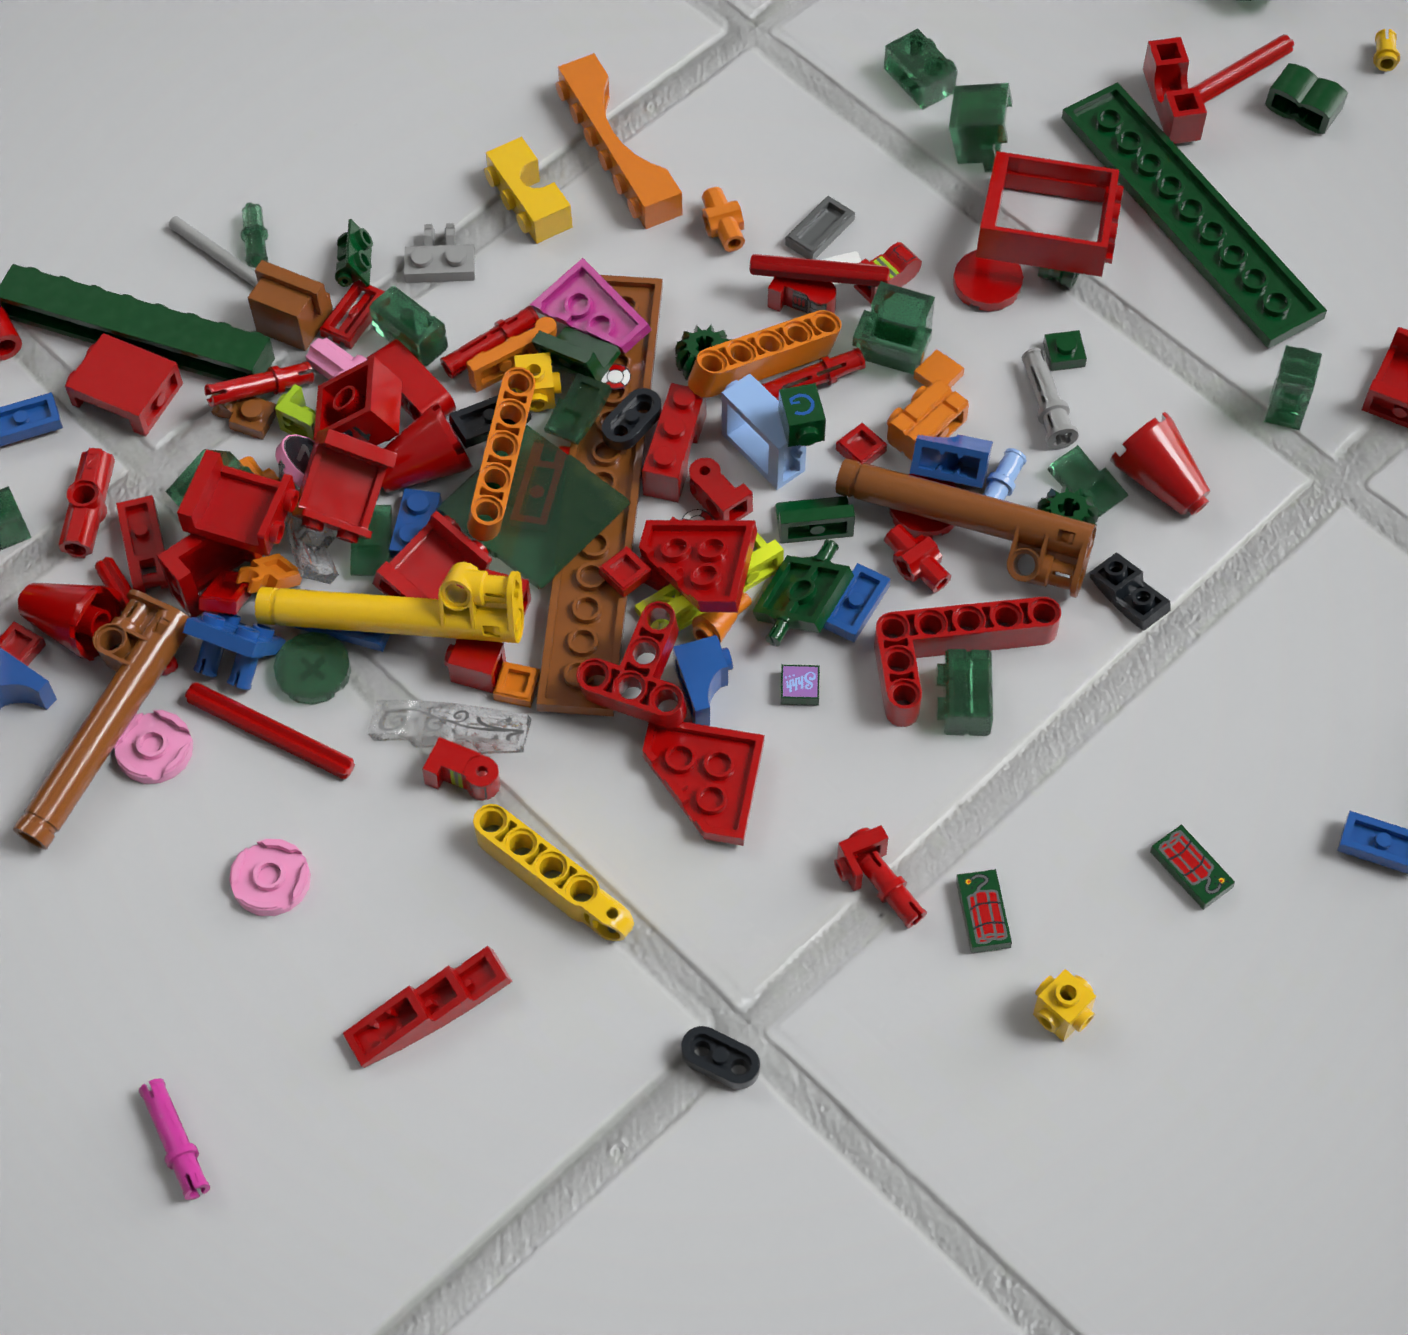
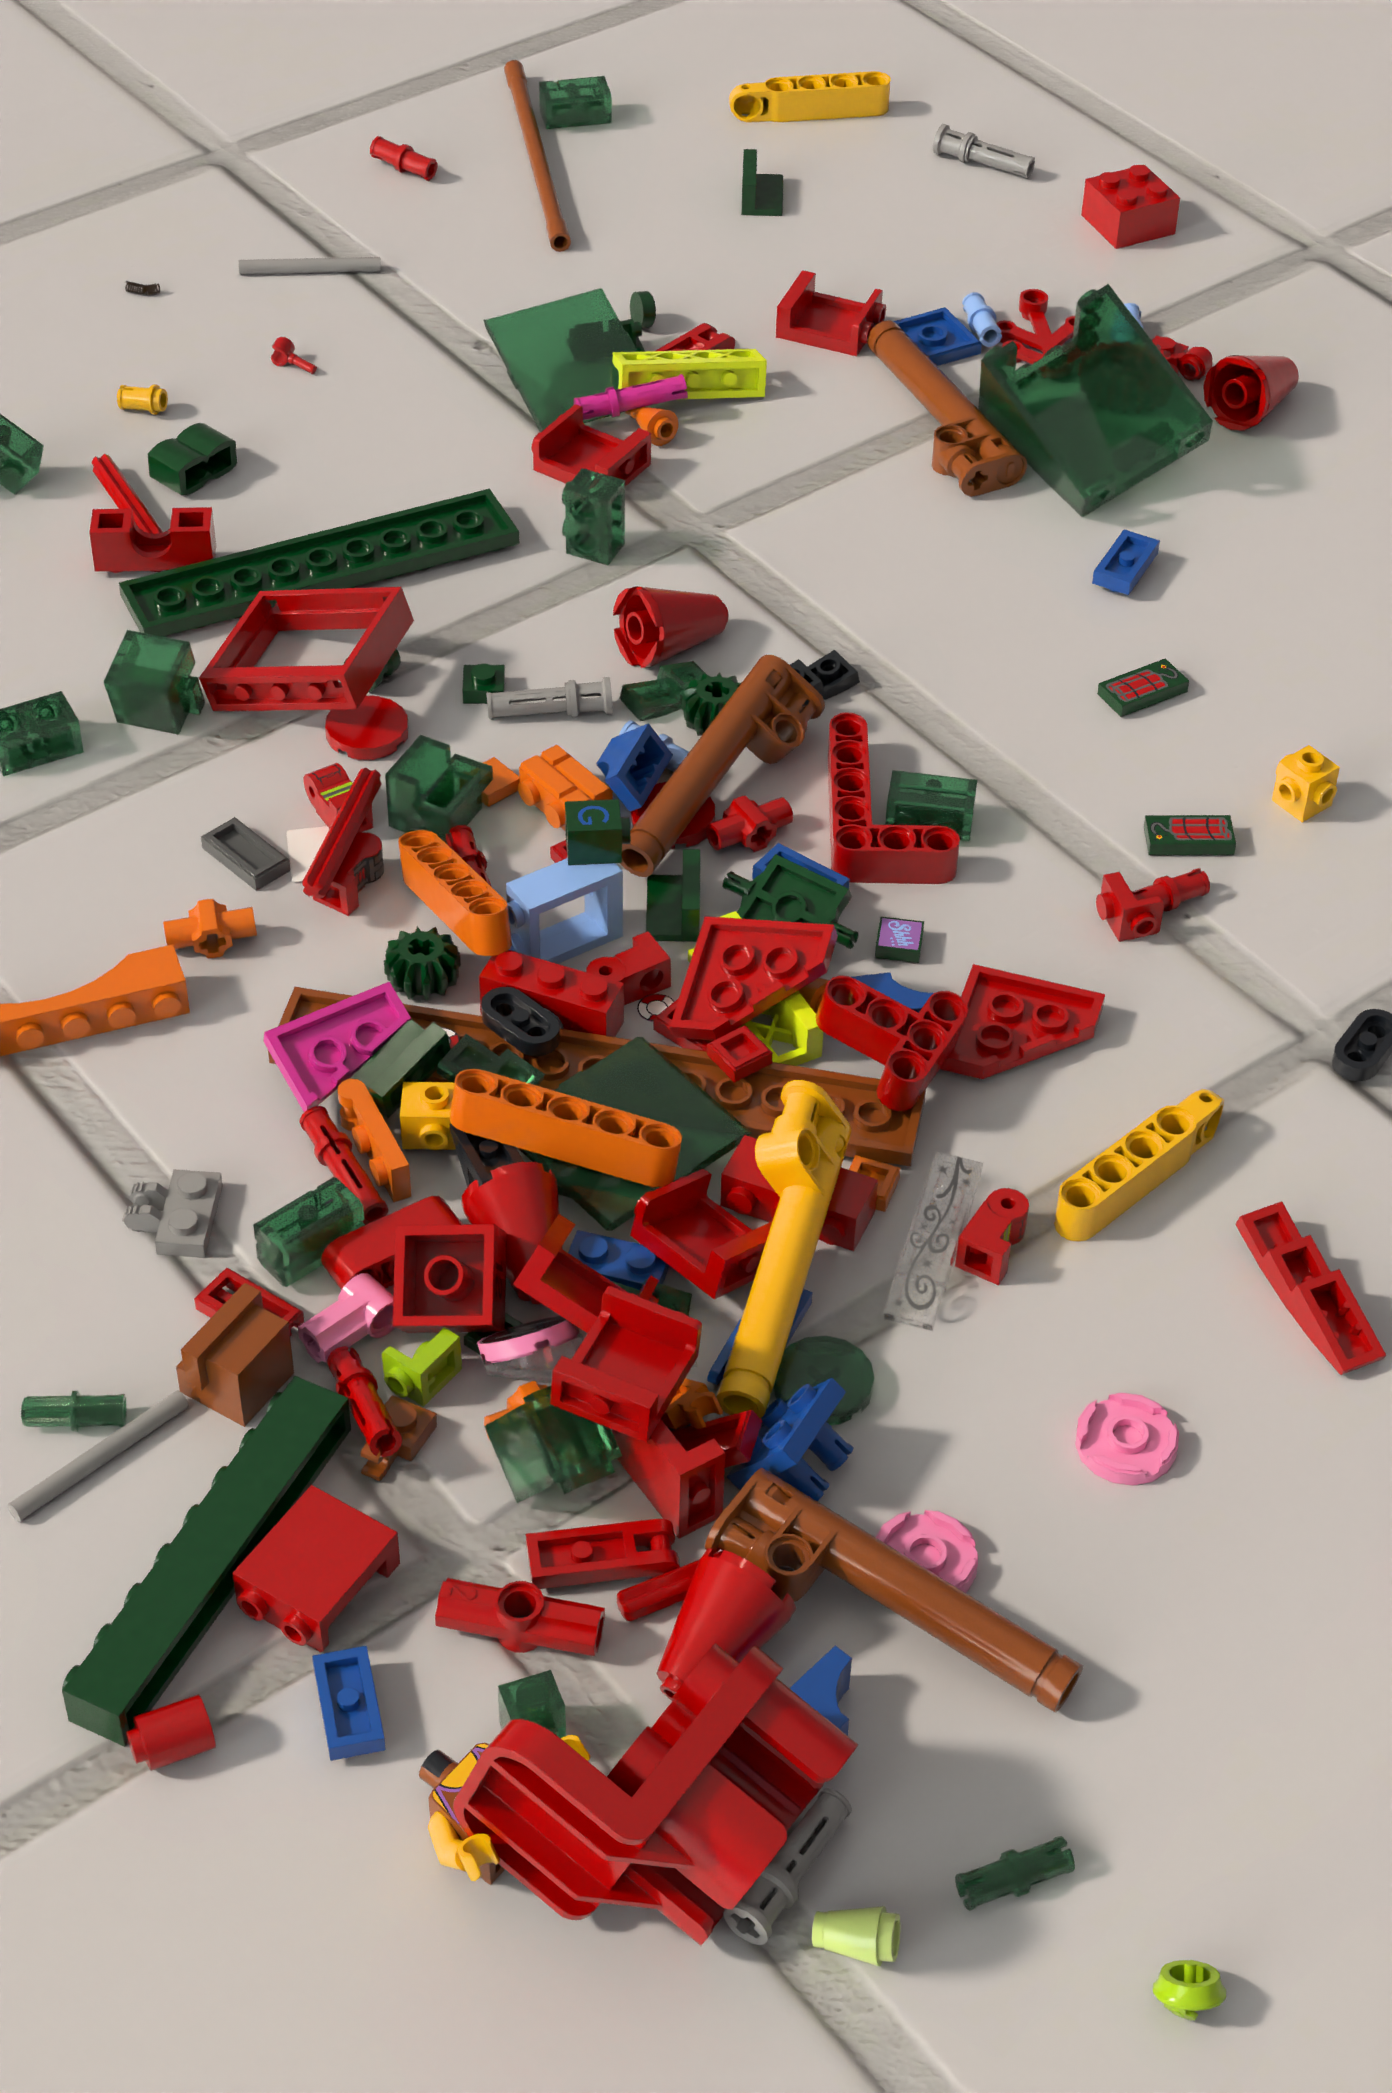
camera: 85 degrees left, 15 degrees down
(270, 730) = (912, 1430): red axle -> none
(353, 256) = (178, 1289): dark green hinge -> none
(538, 211) = (70, 1120): yellow arch -> none

